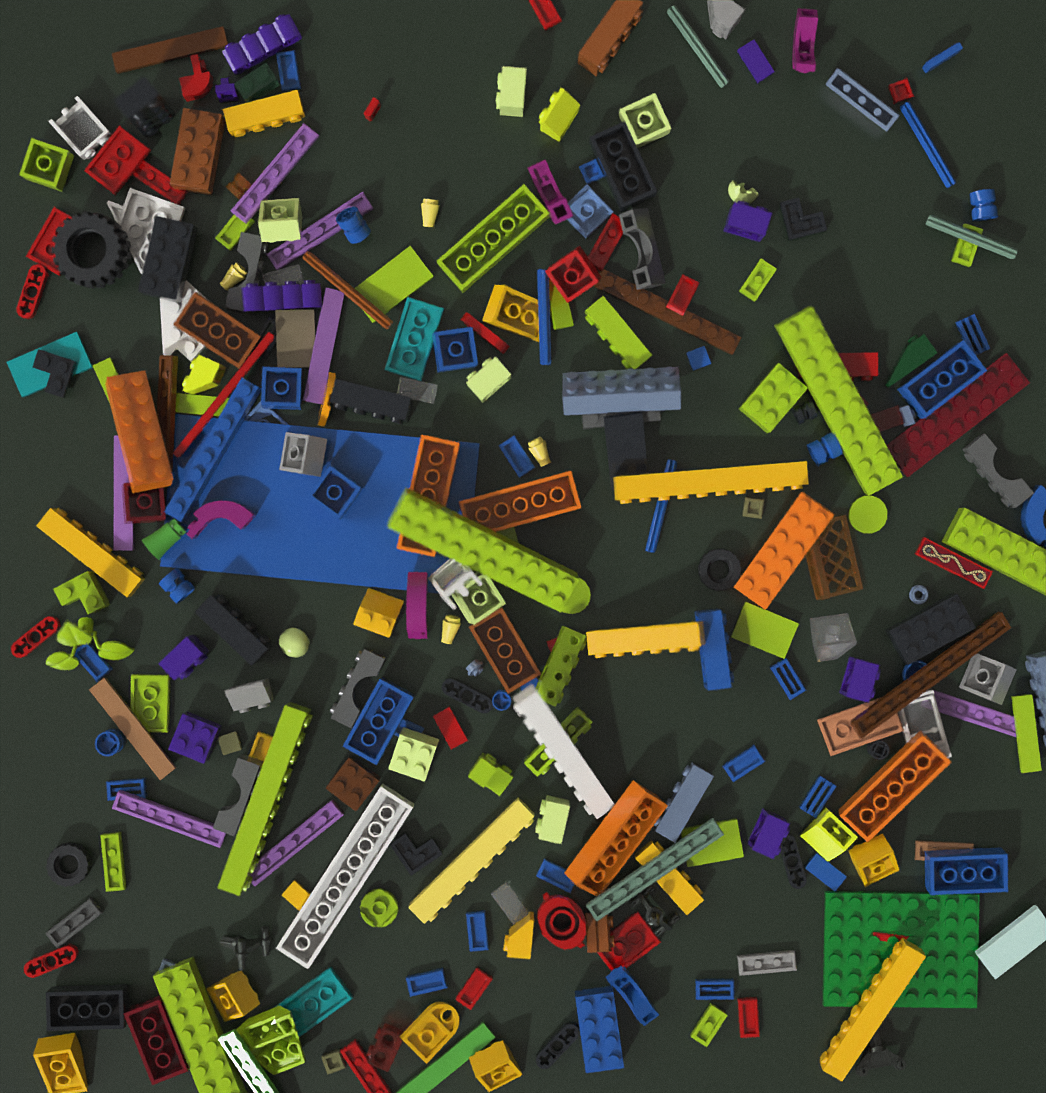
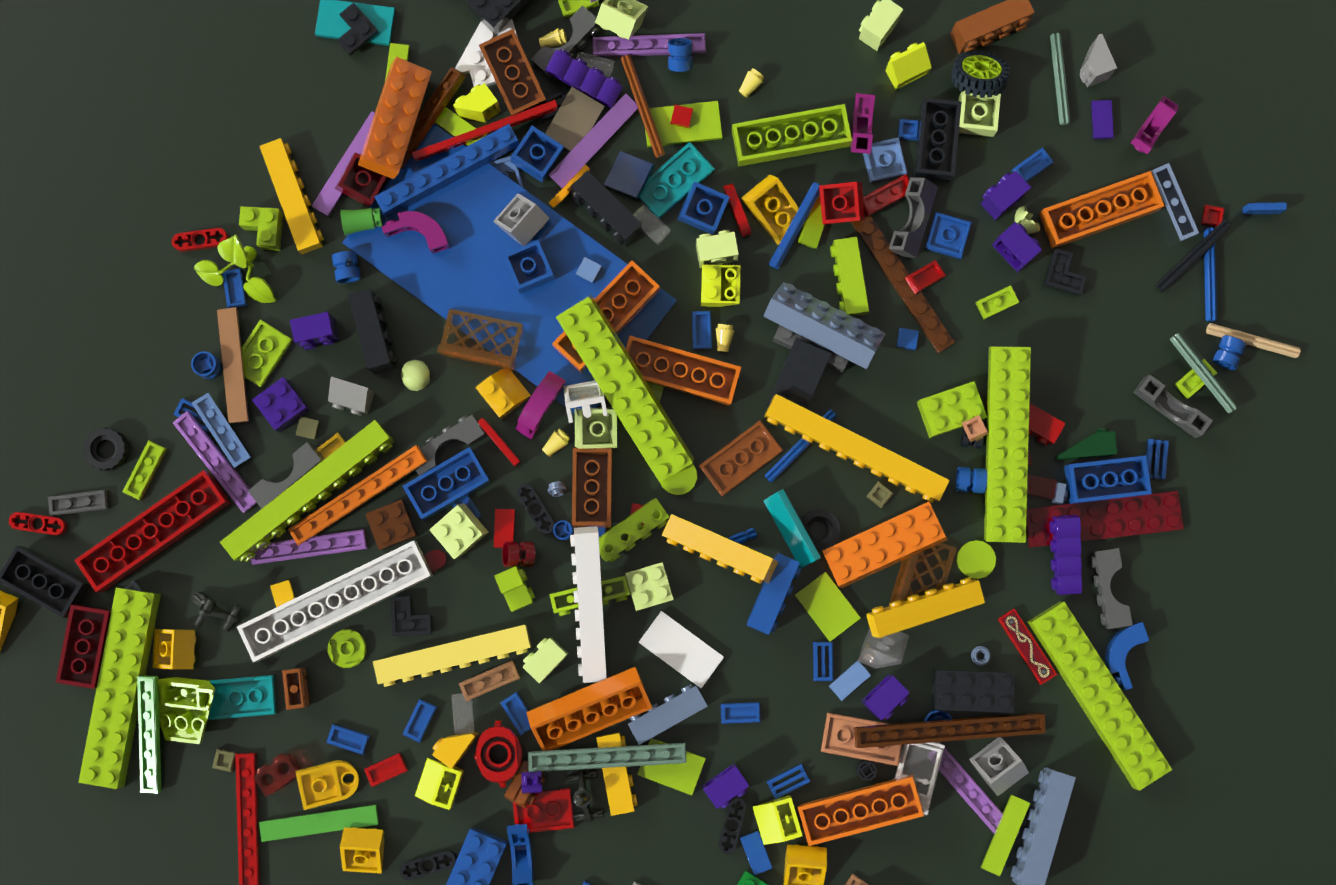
camera: 30 degrees right, 5 degrees down
(153, 910) = (152, 531): none -> red brick
(157, 789) = (221, 430): none -> medium blue plate
(309, 775) = (357, 495): none -> orange tile
(338, 594) = (473, 354): none -> clear orange fence
(357, 968) = (296, 688): none -> dark orange brick
(372, 358) = (629, 175): none -> dark blue tile
(387, 279) = (681, 116): none -> red tile
(388, 463) = (588, 270): none -> medium blue tile
(401, 657) = (499, 442): none -> red tile
(408, 788) = (436, 559): none -> dark red tile
(474, 745) = (518, 554): none -> dark red wheel
(510, 408) = (720, 285): none -> neon yellow slope
(515, 863) = (489, 680): none -> medium nougat tile
(526, 976) = (439, 784): none -> neon yellow slope
(604, 704) = (649, 586): none -> yellowish green brick
(604, 928) = (531, 782): none -> dark purple tile
(616, 547) = (741, 458): none -> dark orange tile
(626, 85) = (980, 74): none -> black wheel
(657, 614) = (743, 536): none -> blue axle
(662, 740) = (681, 649): none -> white tile
(680, 245) = (948, 235): none -> blue tile
(696, 583) = (791, 528): none -> teal tile
(711, 181) = (1005, 195): none -> dark purple brick
(718, 139) = (1034, 165): none -> blue tile
(801, 144) = (1101, 209): none -> orange brick
(803, 404) = (975, 428): none -> nougat tile
(820, 681) = (849, 680): none -> medium blue tile
(849, 584) = (925, 607): none -> yellow brick
(904, 136) = (1193, 255): none -> black axle
(943, 465) = (1067, 554): none -> dark purple brick
(971, 284) = (1158, 397): none -> dark grey arch
(998, 181) = (1254, 340): none -> tan axle

